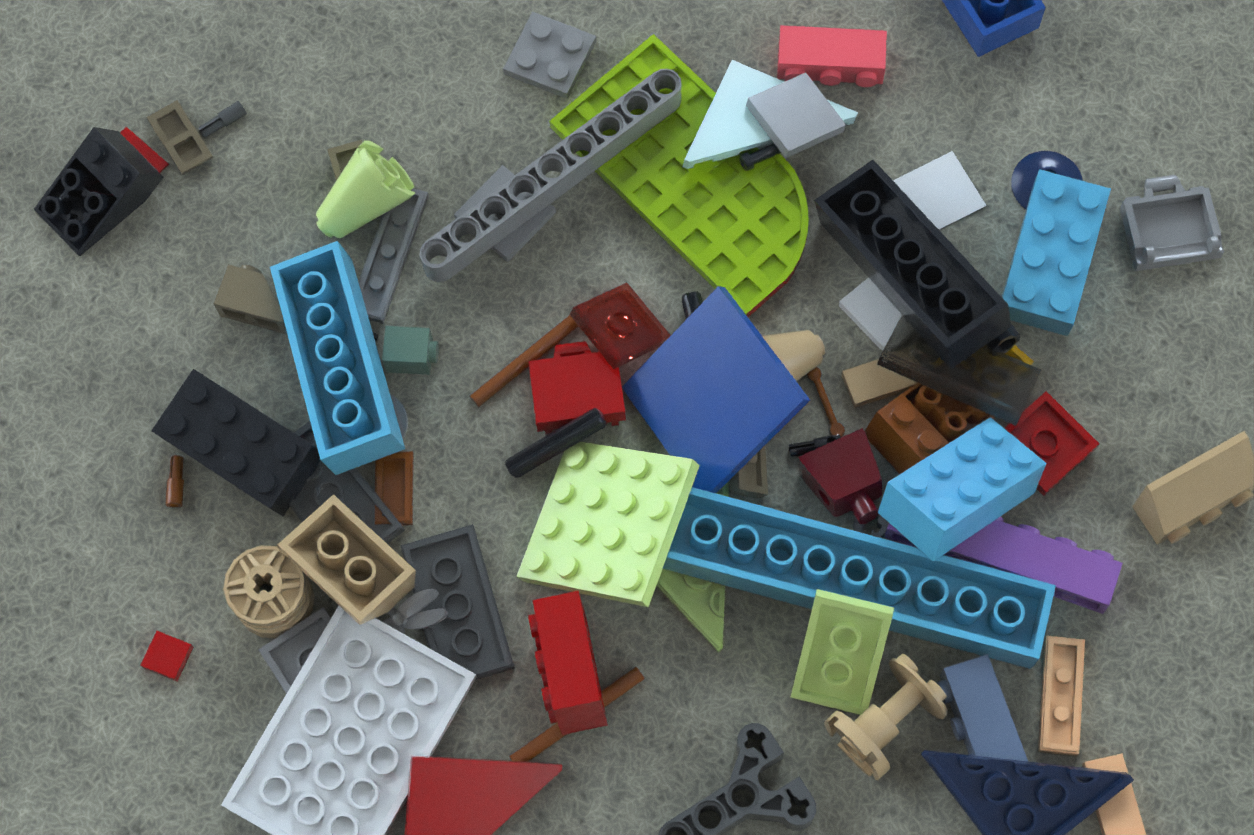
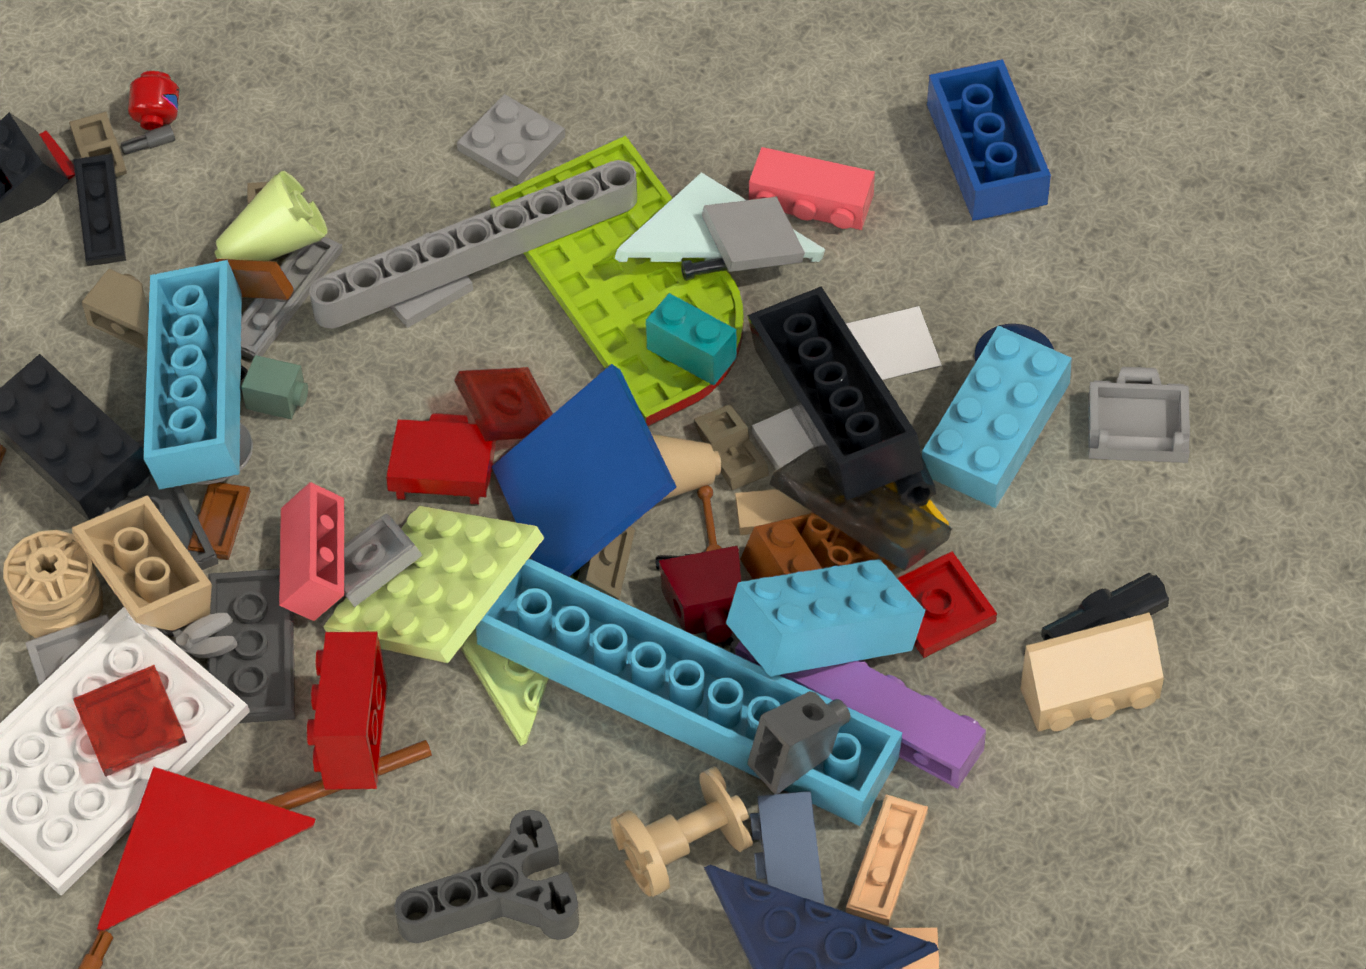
camera: 10 degrees right, 15 degrees down
(200, 201) = (99, 210): none -> black tile
(217, 80) = (153, 100): none -> red head
(365, 247) = (260, 279): none -> dark orange tile
(377, 713) = (129, 720): none -> clear red tile
(490, 511) = (312, 551): none -> coral brick
(521, 363) = (388, 426): dark orange bar -> none
(544, 507) = (376, 558): none -> light grey tile
(555, 443) = (403, 500): black axle -> none
(770, 233) = (691, 339): none -> teal brick
(821, 316) = (730, 437): none -> dark tan slope
(842, 652) = (648, 754): yellowish green plate -> none
(975, 620) = (795, 739): none -> dark grey torso
(1191, 426) = (1102, 607): none -> black piece

